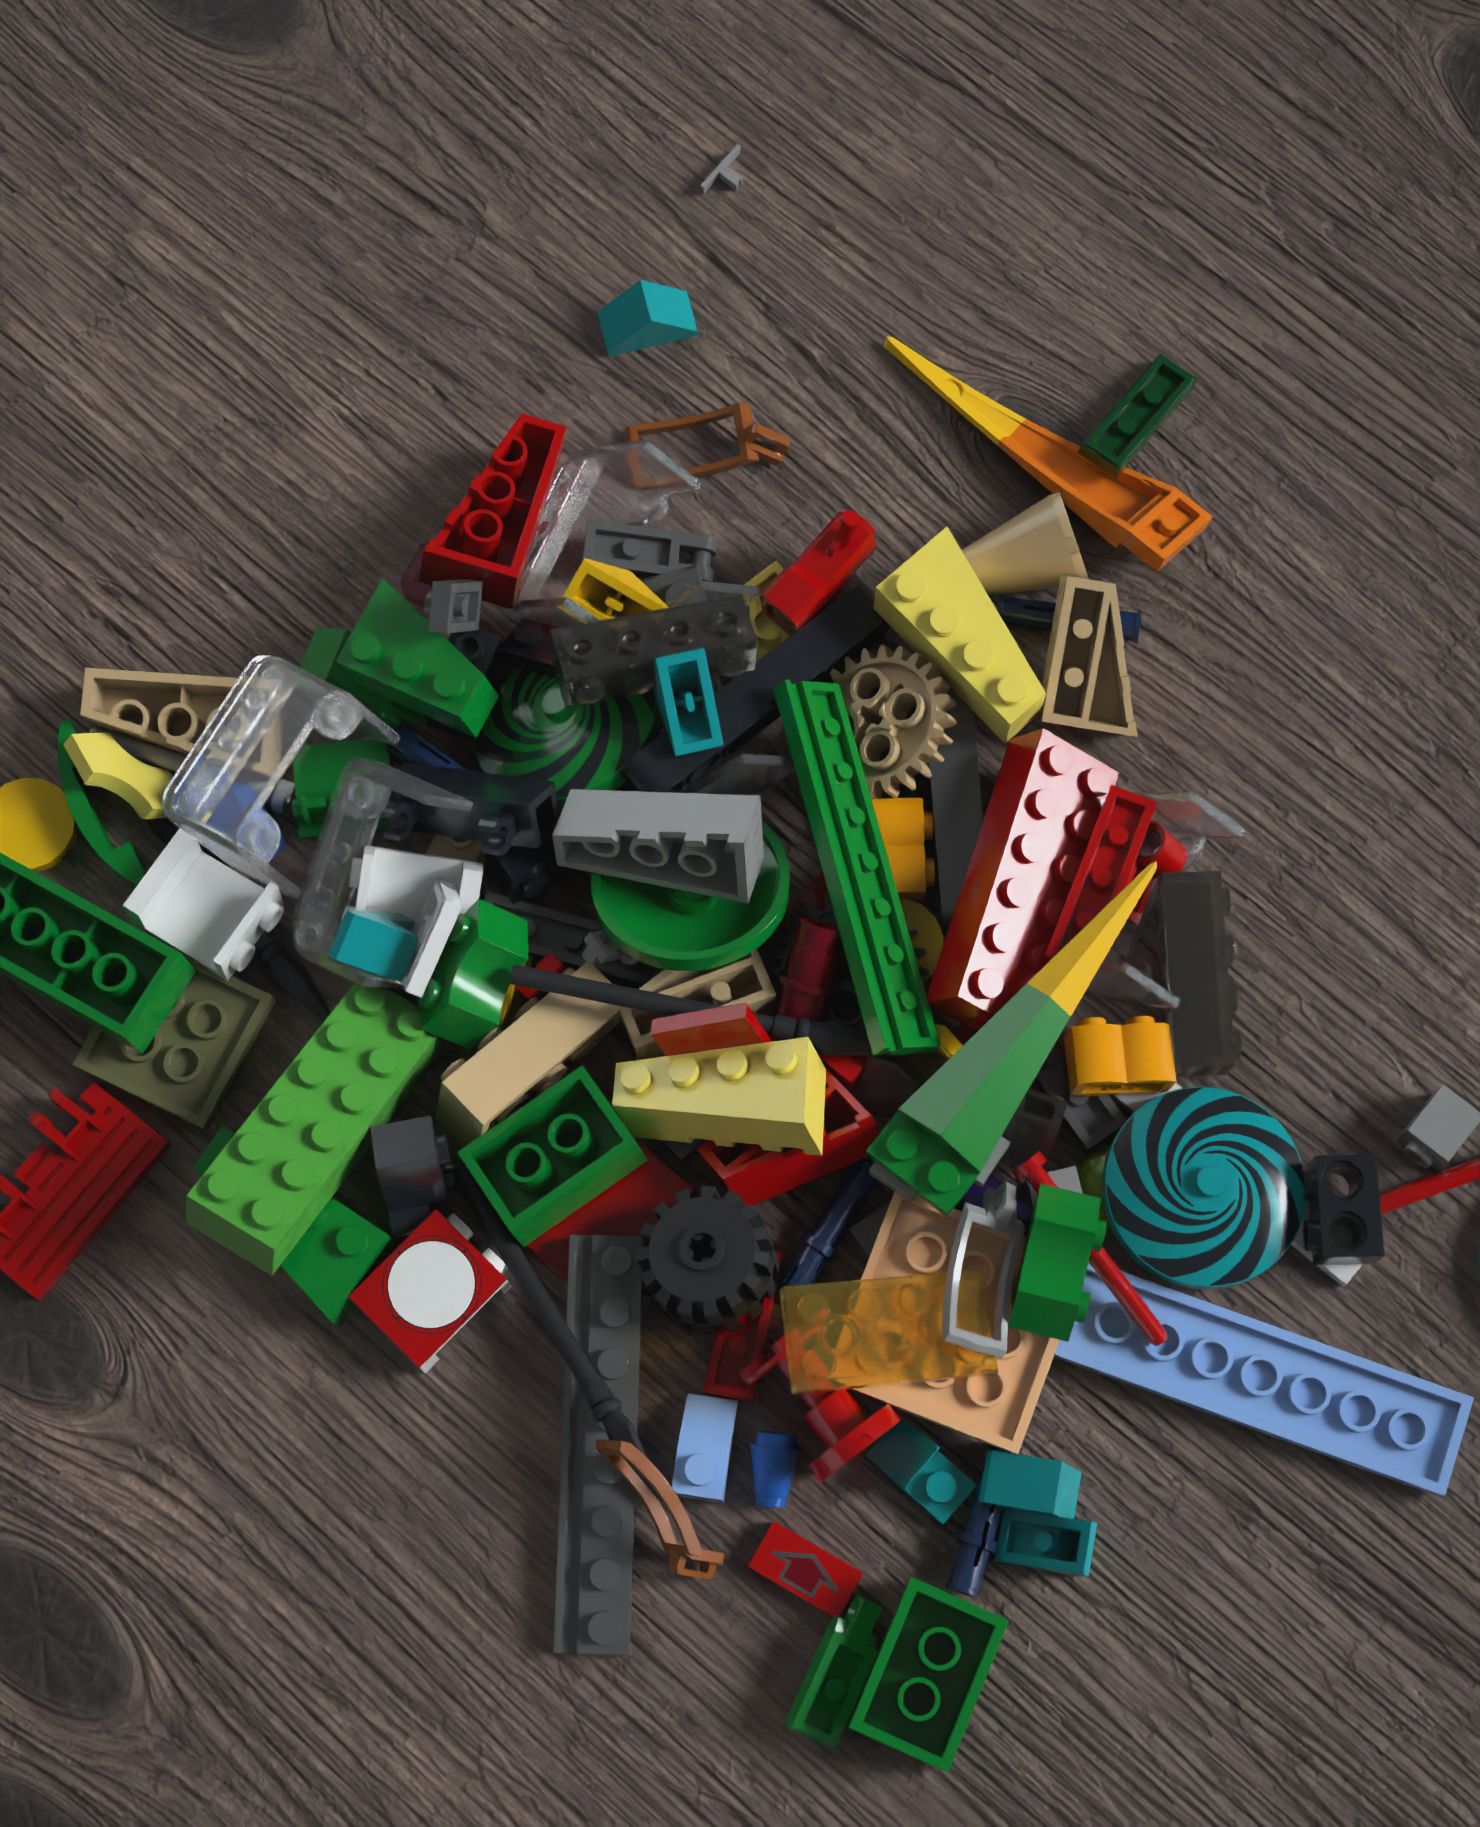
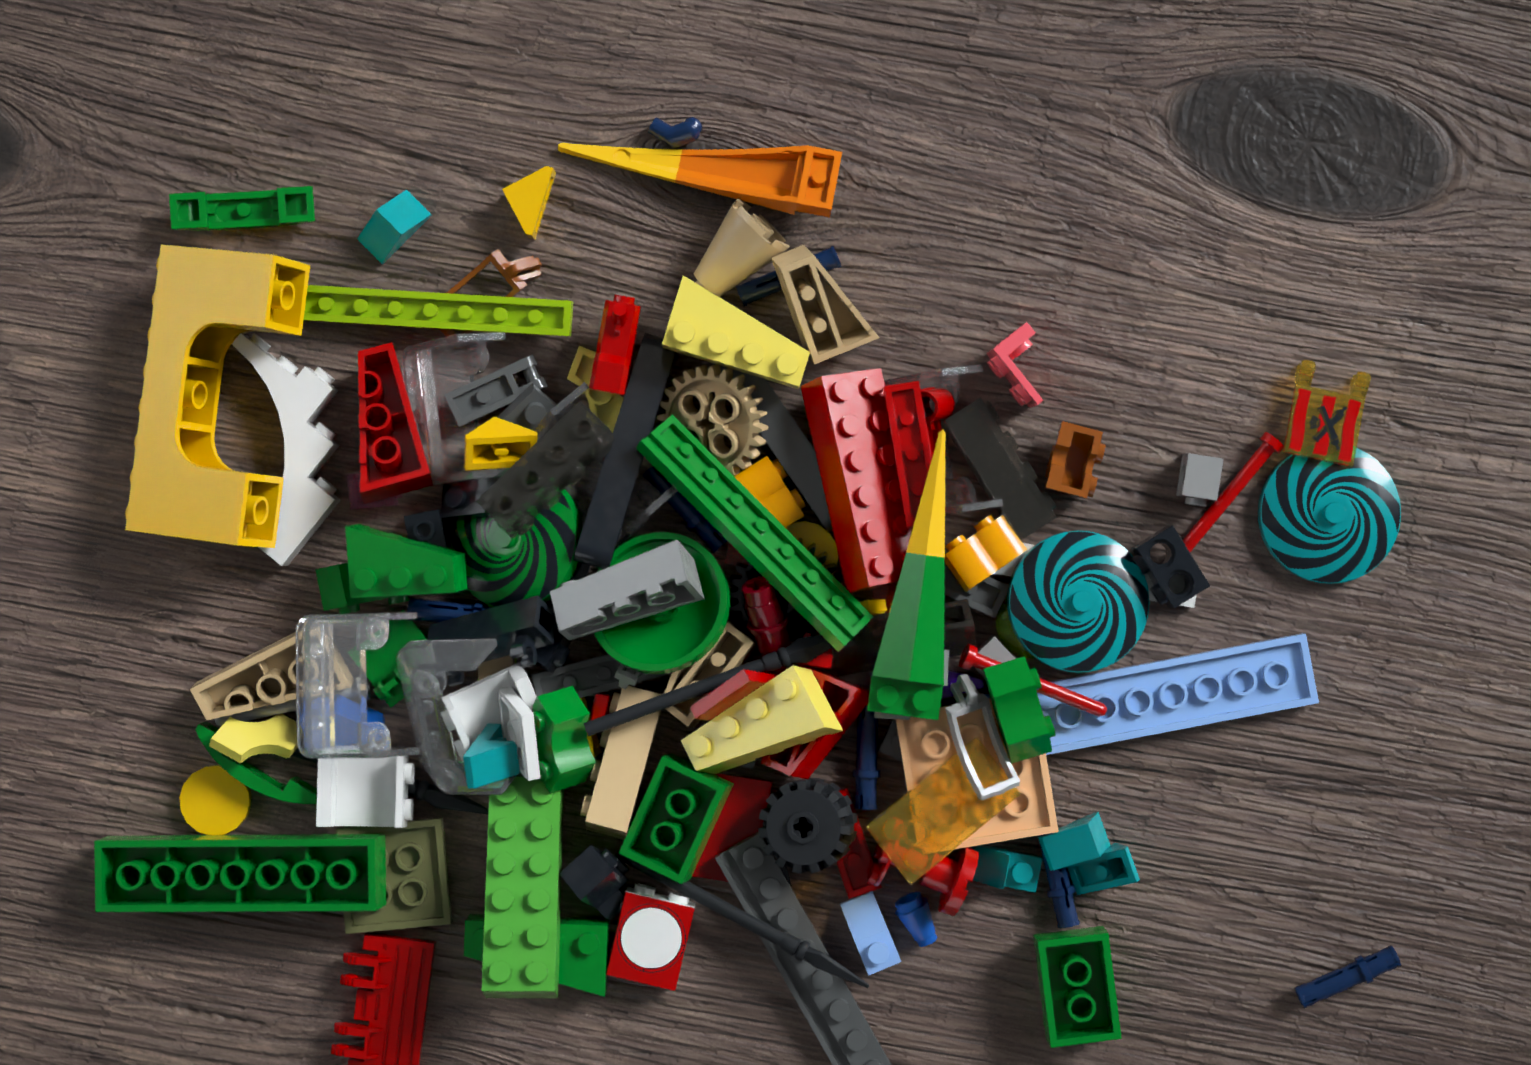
camera: 35 degrees left, 15 degrees up
(356, 544) = (306, 446): none -> white arch
(374, 277) = (197, 313): none -> yellow arch
(453, 606) = (403, 519): dark grey plate -> none
(489, 212) = (242, 209): none -> green slope
(626, 419) = (439, 310): none -> lime plate
(687, 701) = (592, 497): teal slope -> none
(691, 1549) = (885, 995): dark orange sword -> none
(724, 172) = (379, 87): light grey piece -> none
(793, 825) = (693, 518): none -> dark blue pin
(805, 1570) = (970, 965): red tile -> none
(822, 370) = (529, 198): none -> yellow slope
(836, 1674) = (1023, 1014): green hinge -> none
(1028, 398) = (676, 135): none -> dark blue arm
(1137, 416) = (754, 107): dark green tile -> none
(1285, 839) = (1003, 366): none -> coral bracket
(1293, 1015) = (1073, 460): none -> dark orange cylinder

